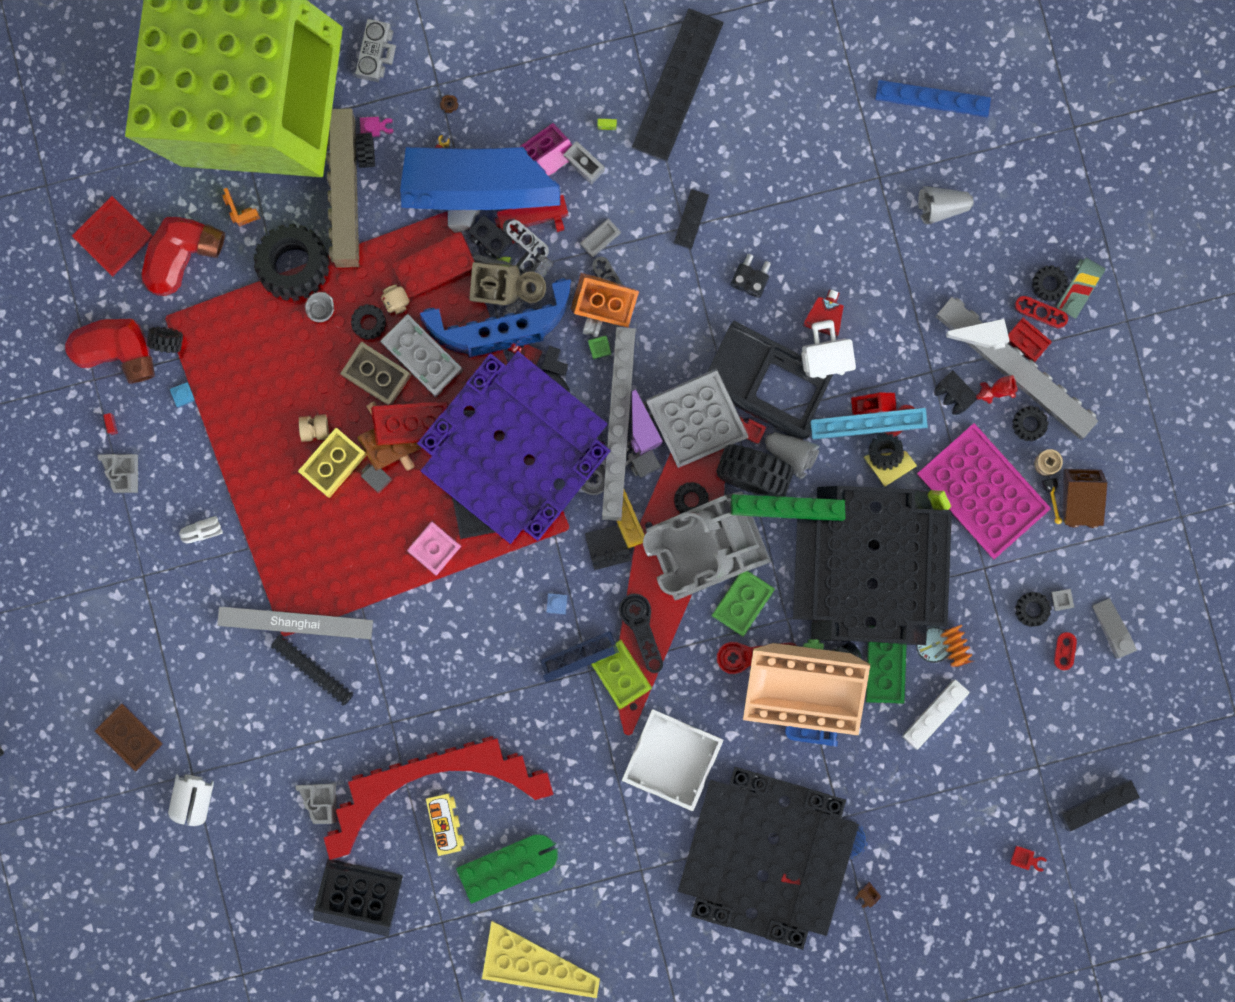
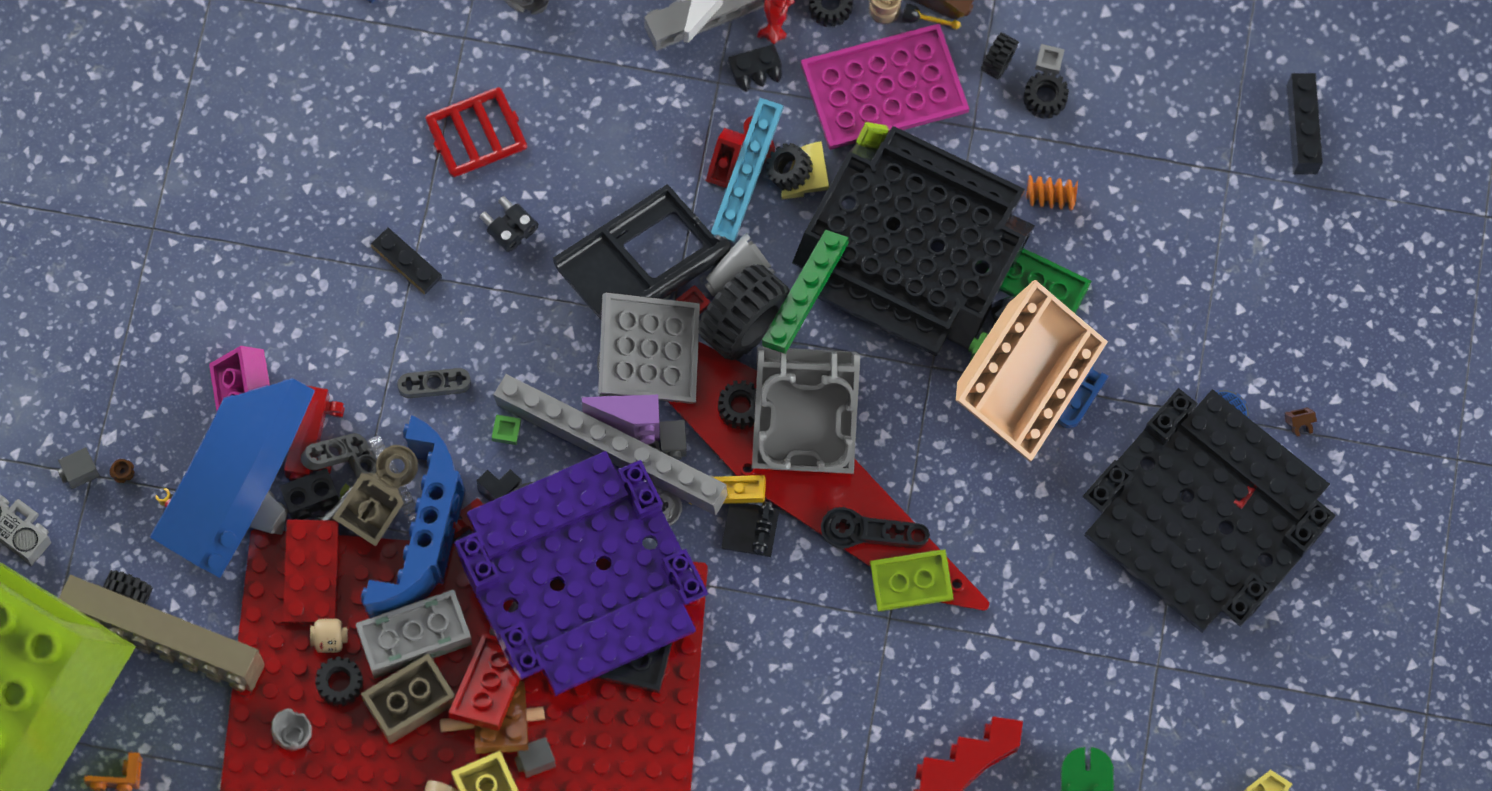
camera: 70 degrees left, 15 degrees down
(280, 242) = (193, 720): black tyre -> none
(373, 125) = (99, 570): dark pink plate -> none
(434, 548) = (655, 730): bright pink tile -> none
(435, 73) = (77, 468): none -> dark grey brick
(556, 604) = (791, 618): medium blue plate -> none
(584, 162) = (278, 344): light grey slope -> none
(592, 327) = (477, 425): light grey wheel -> none
(600, 238) = (375, 372): light grey tile -> none
(604, 300) = (453, 396): orange slope -> none
(604, 653) = (877, 618): dark blue fence -> none
(607, 124) = (244, 301): lime tile -> none
(672, 760) = (1042, 567): white tile -> none
(677, 85) = (240, 204): black plate -> none
(743, 602) = (890, 406): bright green tile -> none
(744, 655) = (953, 429): red beam -> none
(818, 197) = (476, 161): none -> red bar
(826, 310) = (596, 162): red torso -> none
(828, 356) = (647, 176): white piece -> none
(934, 649) = (1045, 220): clear light blue sticker -> none
(935, 714) = (1120, 250): white brick -> none
(1025, 858) = (1331, 231): red plate -> none
(1044, 563) = (999, 55): none -> black tyre
(1067, 652) = (1111, 81): red plate -> none
(1114, 629) = (1109, 19): light grey slope -> none

